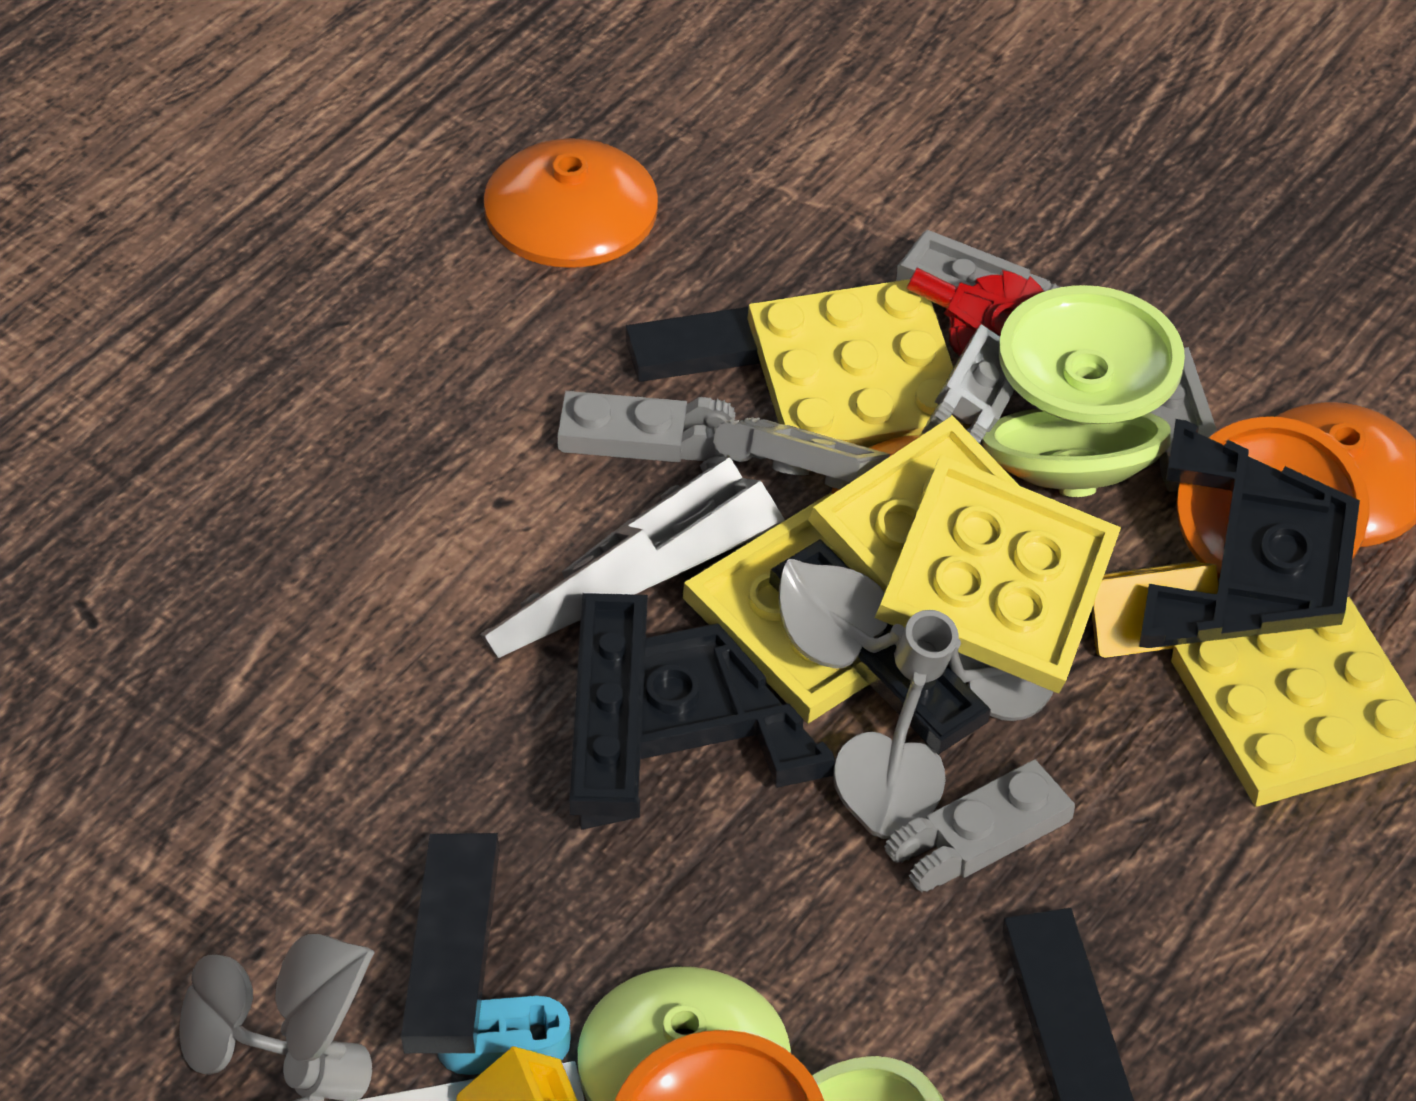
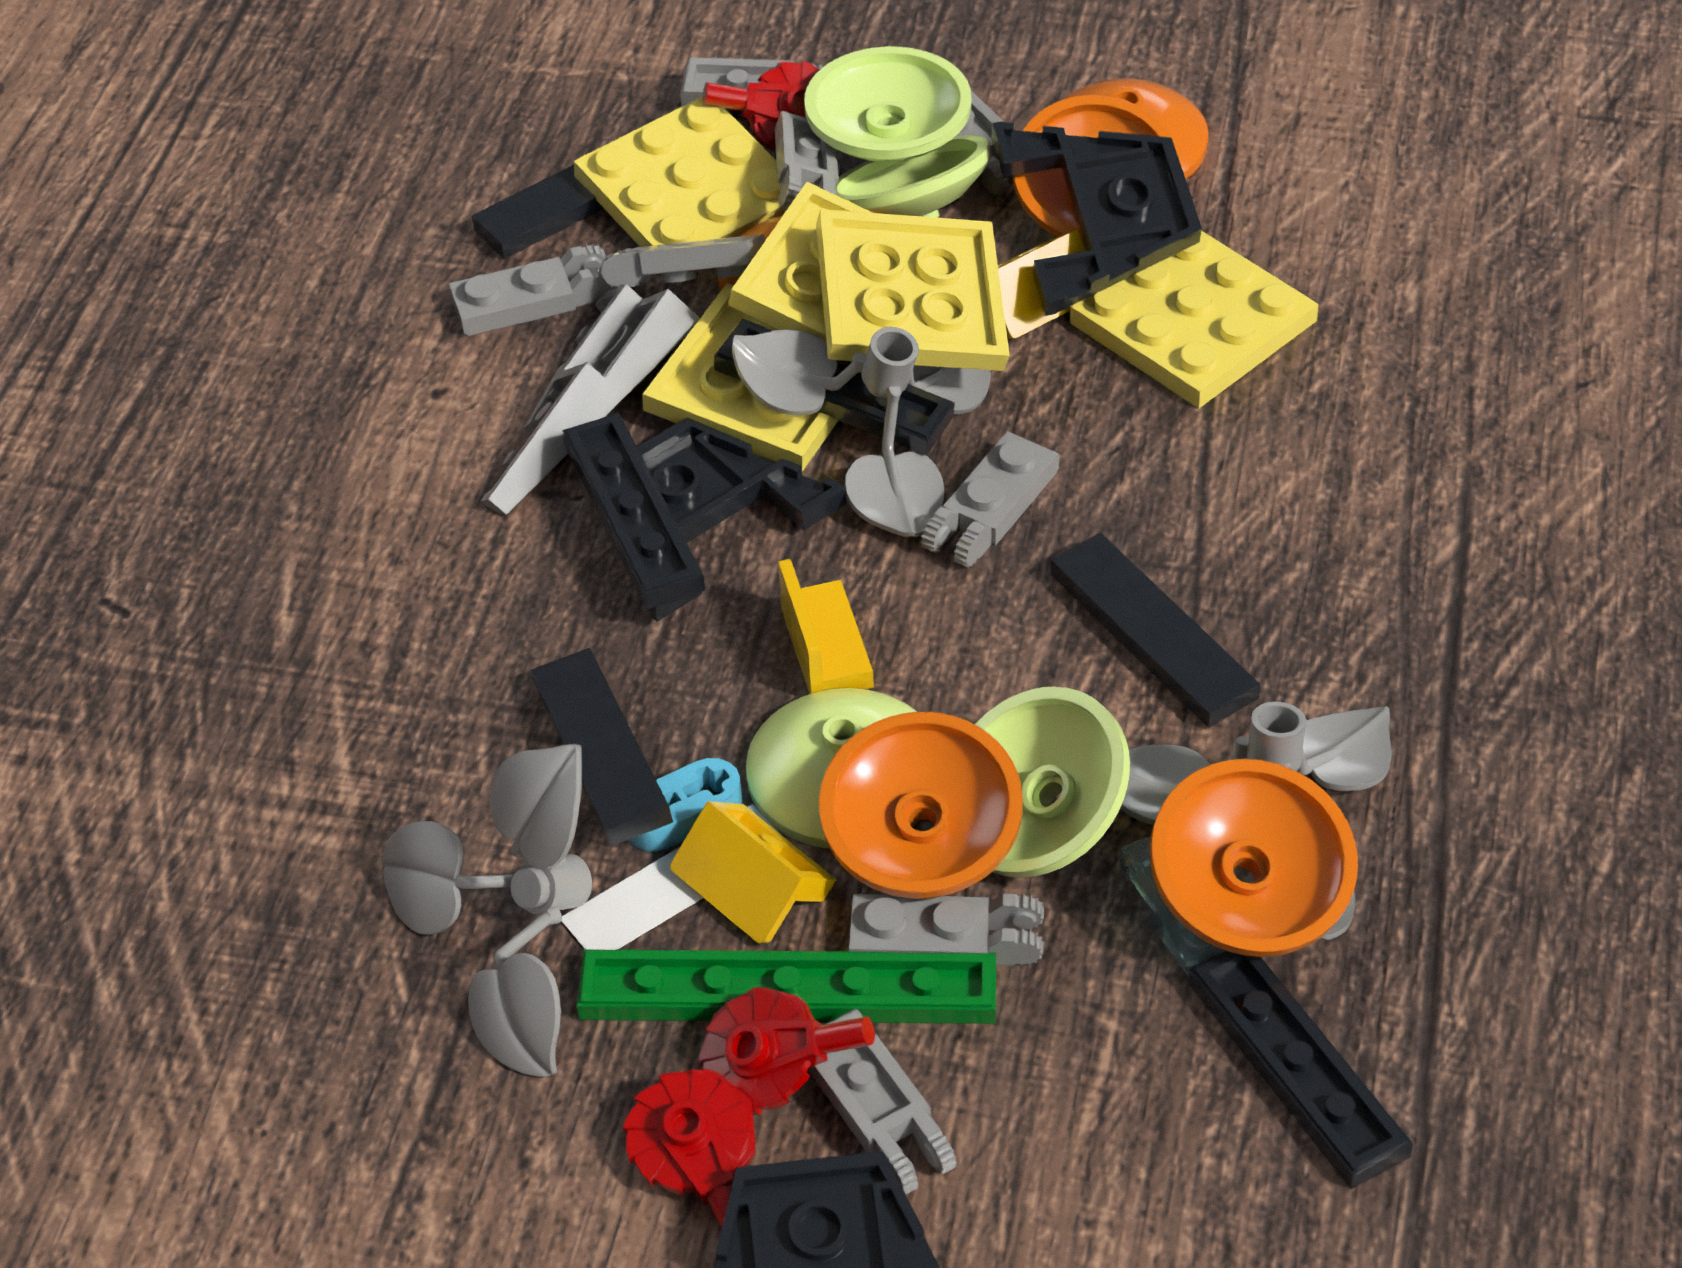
camera: 20 degrees left, 0 degrees up
(570, 203) = (364, 137): orange dish -> none
(734, 908) = (823, 633): none -> yellow panel

